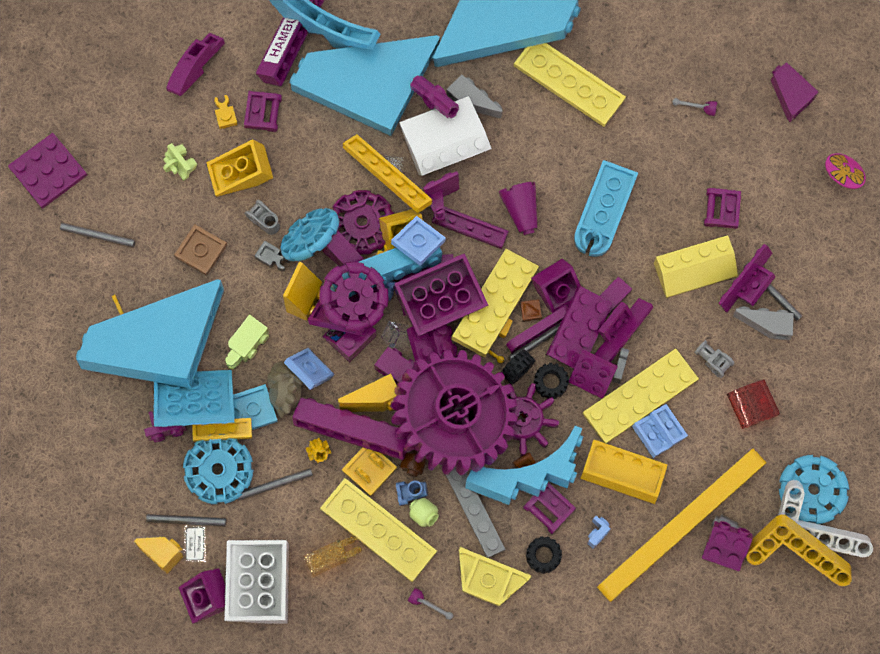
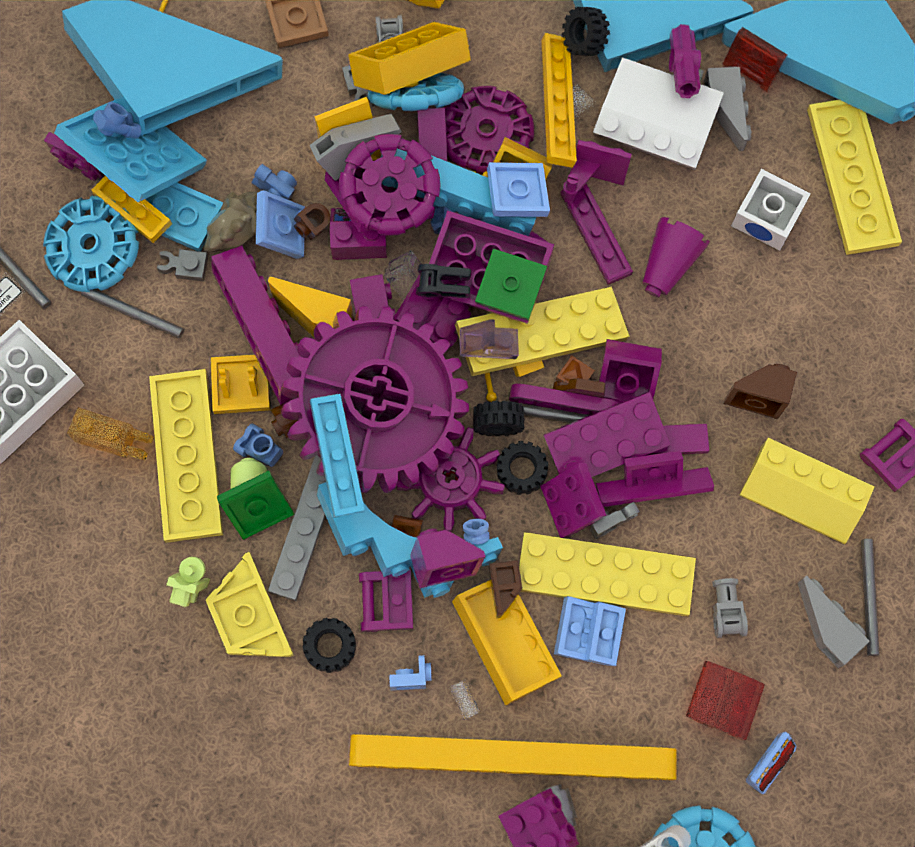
camera: 45 degrees right, 0 degrees up
(177, 390) = (116, 120): none -> medium blue plate
(245, 341) = (246, 144): yellowish green hinge -> none
(277, 433) = (188, 265): none -> flat silver plate
(283, 350) = (279, 184): none -> medium blue plate
(291, 220) = (409, 57): none -> yellow brick
(307, 297) = (338, 142): none -> light grey slope
(318, 450) = (207, 316): yellow gear -> none
(324, 351) = (312, 220): none -> reddish brown plate
(372, 118) = (596, 31): none -> black tyre
(417, 598) = (154, 562): hinge -> none
(422, 326) = (440, 273): none -> black piece
(442, 520) = (255, 505): none -> green plate
(446, 588) = (188, 581): none -> yellowish green hips
(463, 293) = (511, 284): none -> green plate
(465, 62) = (757, 54): none -> clear red plate
(469, 455) = (337, 455): none -> medium azure plate
(479, 332) = (488, 341): none -> slope
(543, 313) = (582, 386): none -> reddish brown tile
(547, 137) = (770, 209): none -> white brick
(562, 432) = (476, 531): none -> light blue bush
(563, 458) = (444, 558): none -> magenta slope
(600, 445) = (505, 584): none -> reddish brown tile
(604, 208) = (762, 338): medium azure plate -> none
(633, 519) = (464, 699): none -> clear pin
(634, 234) = (764, 391): none -> reddish brown slope
(751, 281) = (852, 562): magenta bracket -> none
(801, 414) = (771, 762): none -> slope

